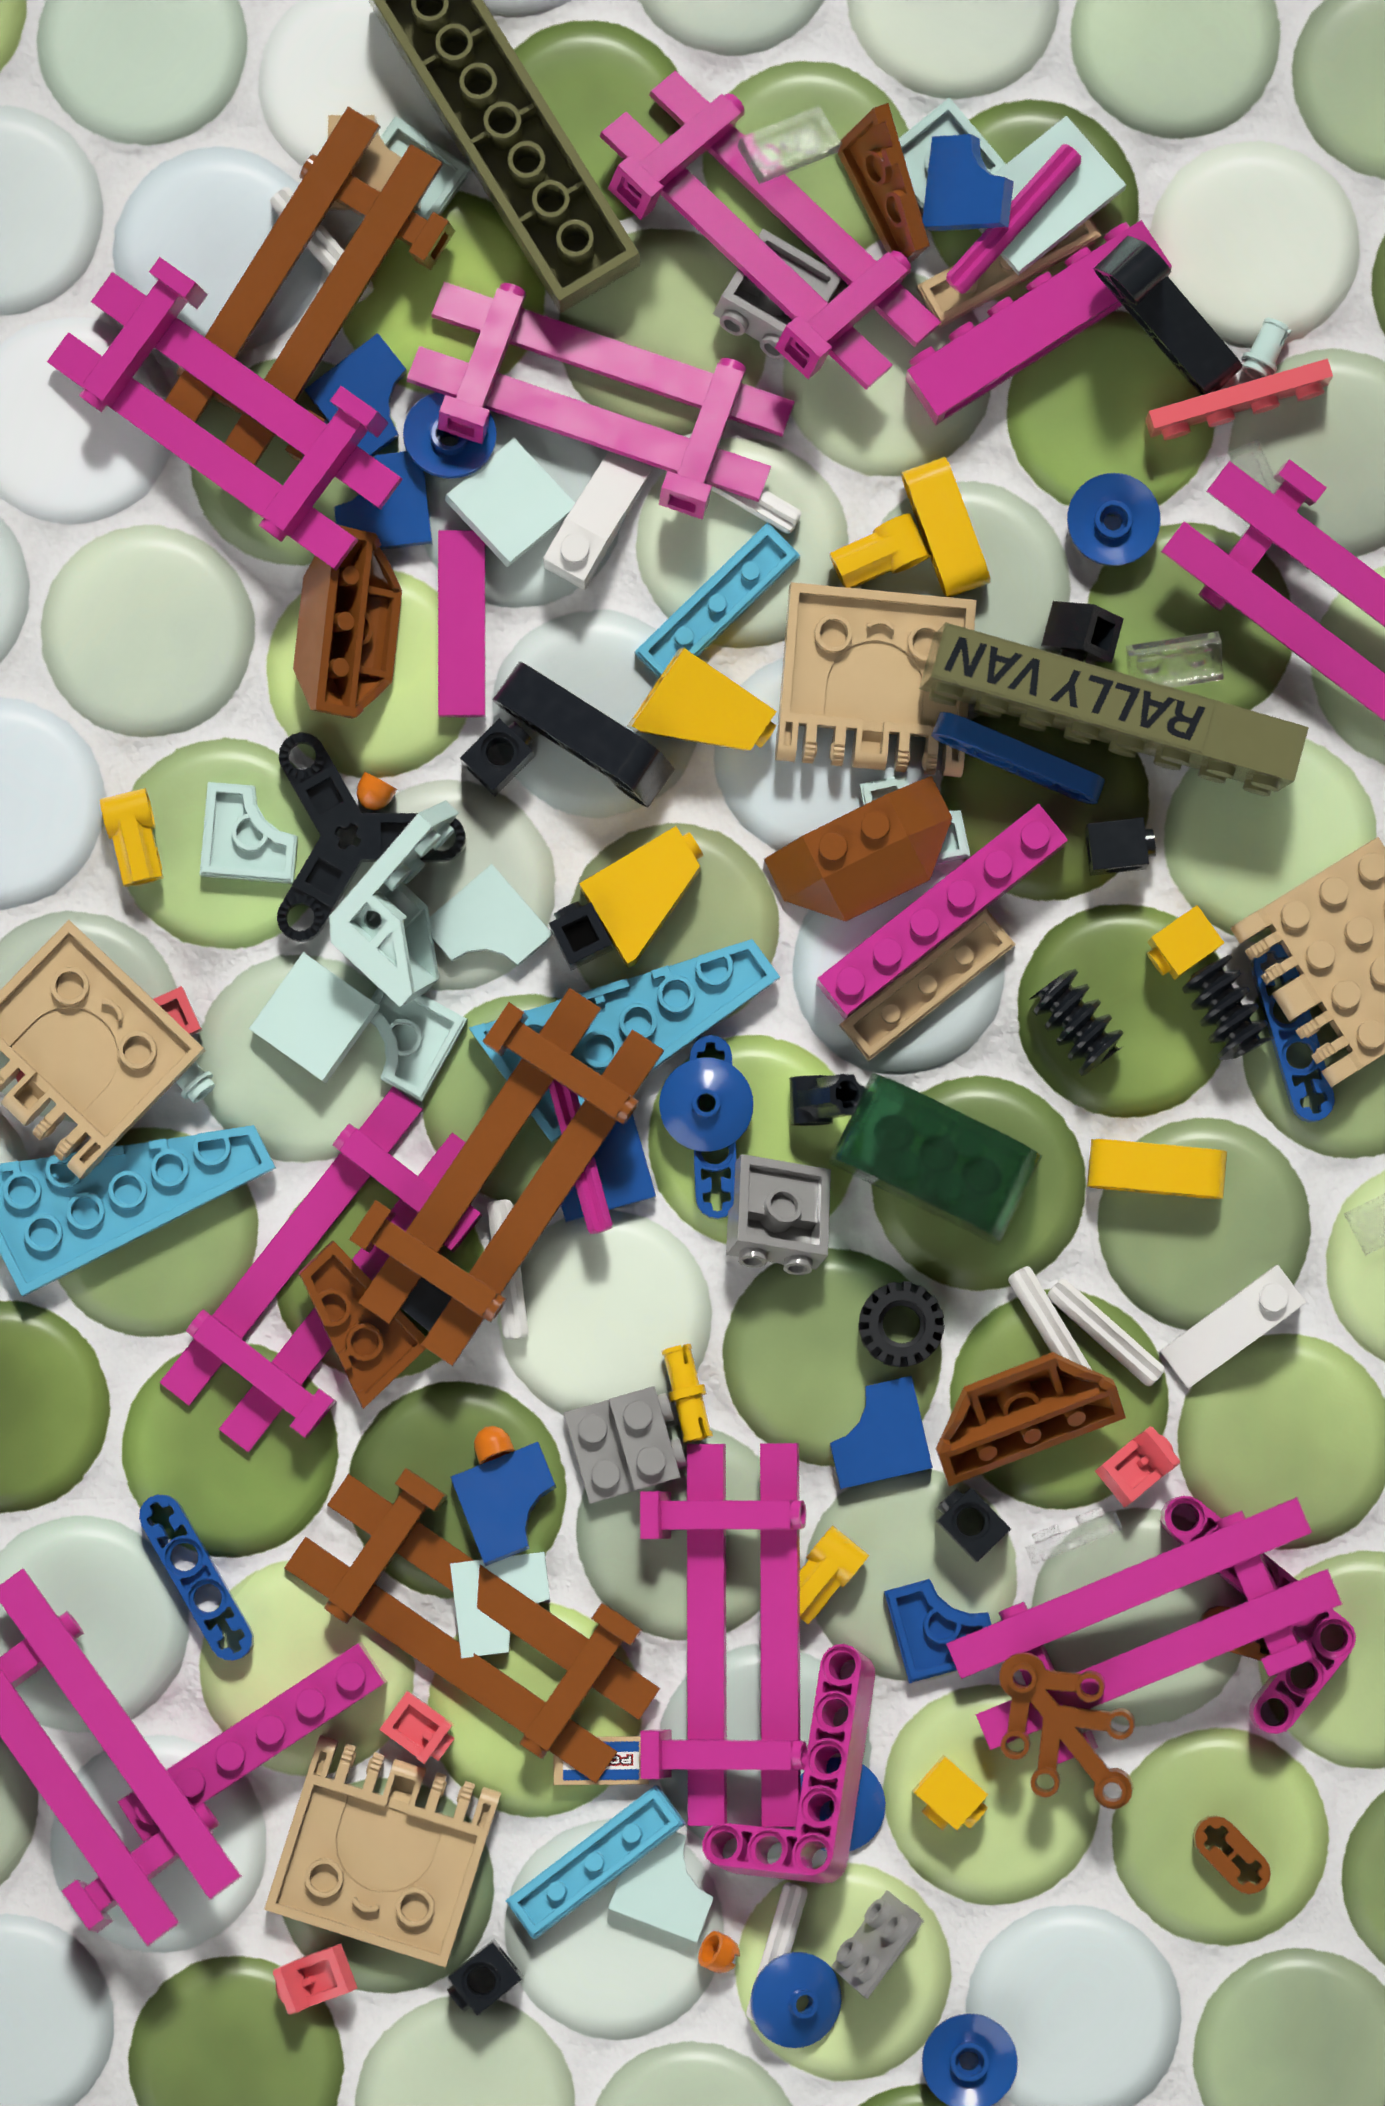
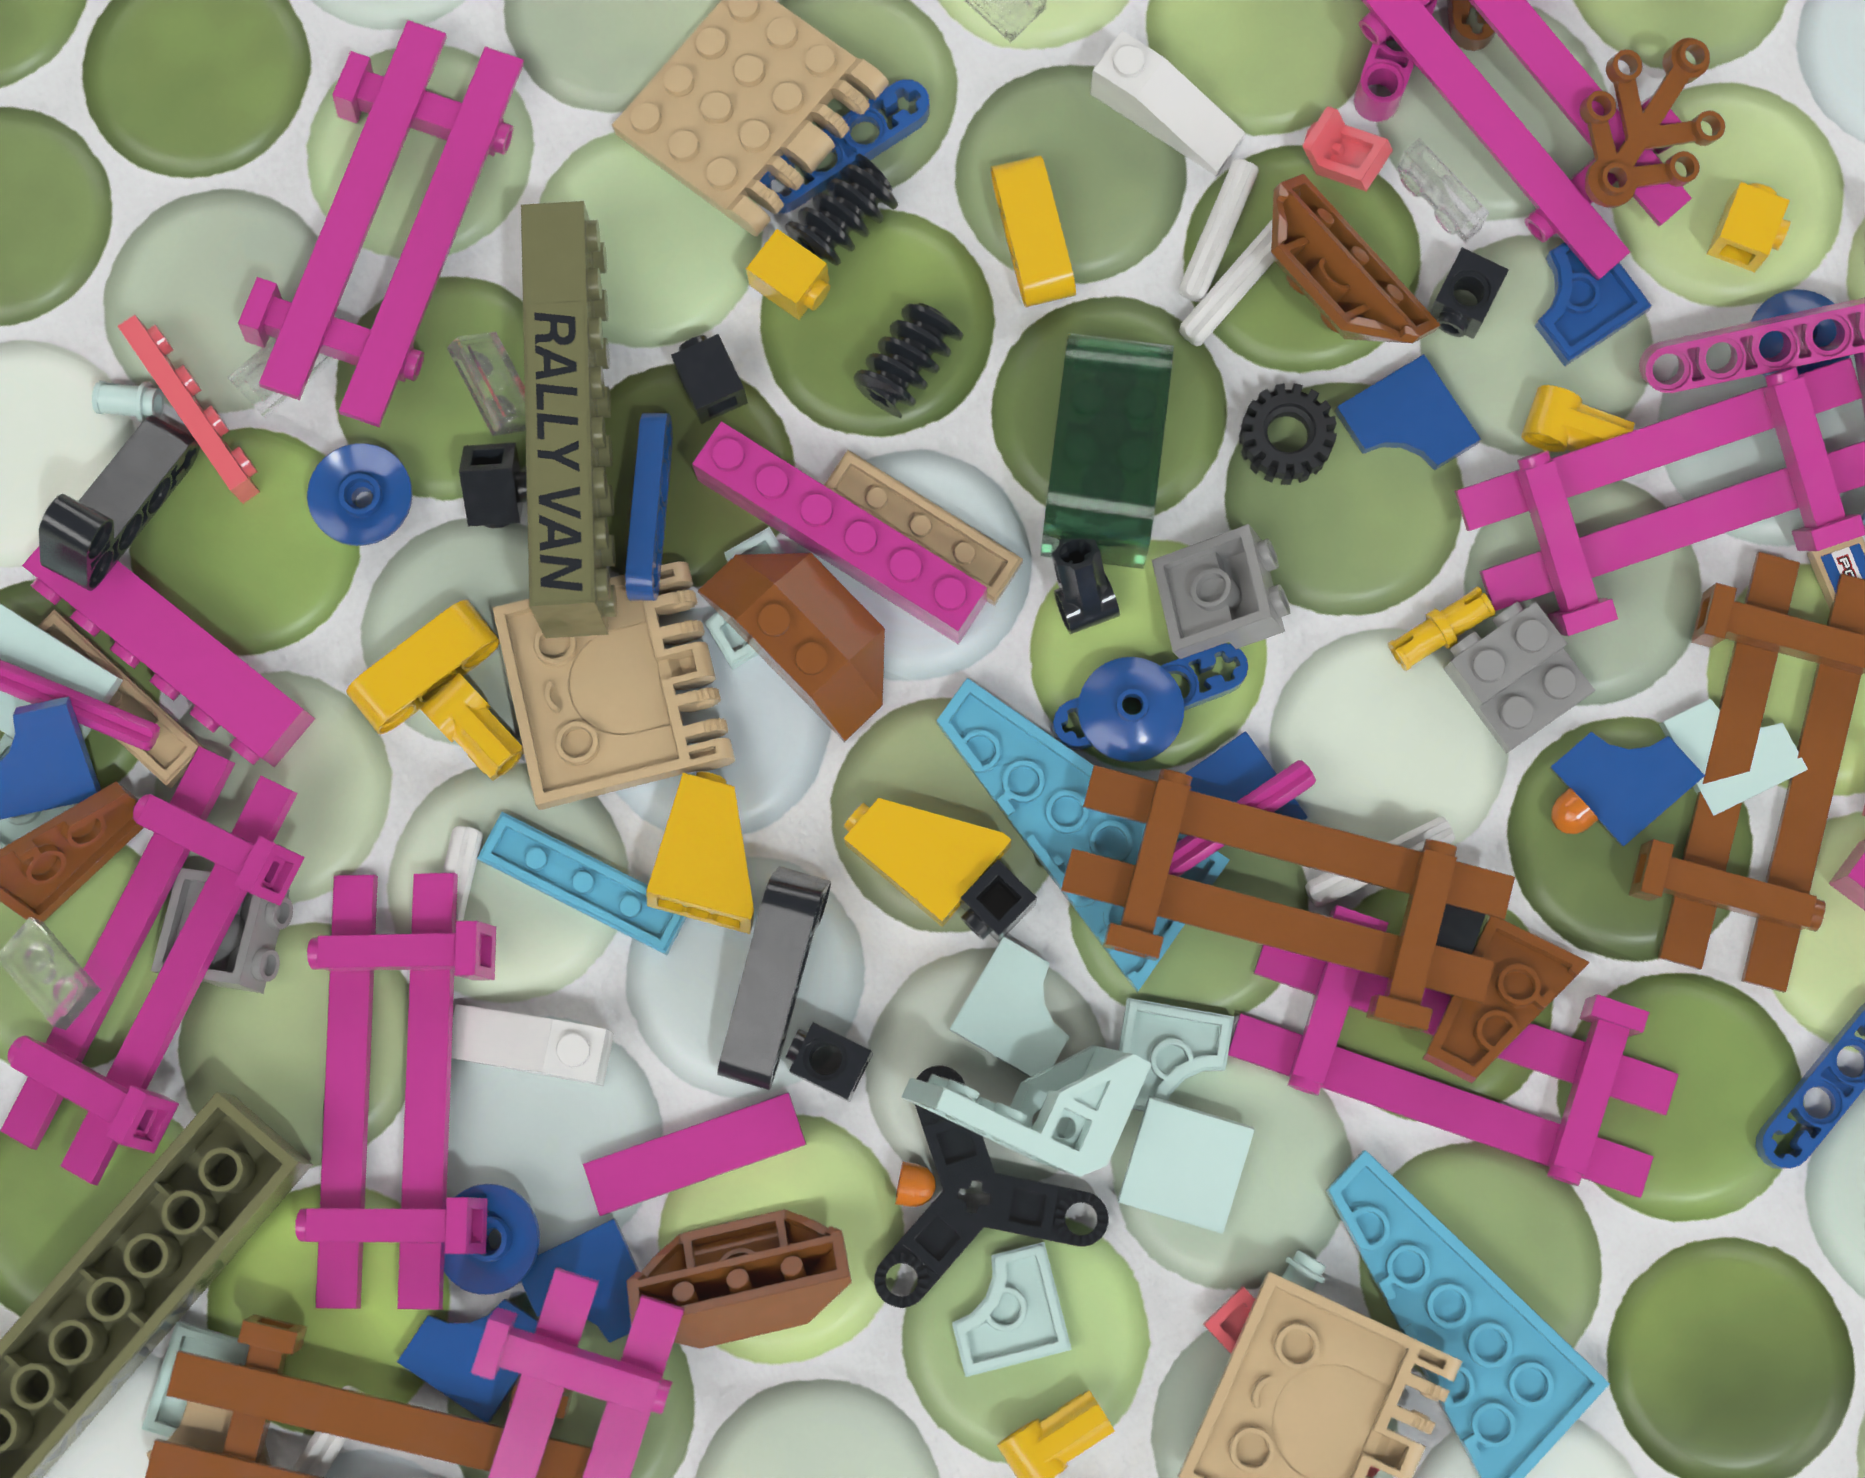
camera: 105 degrees left, 5 degrees down
(510, 502) = (543, 1145): light aqua tile -> none

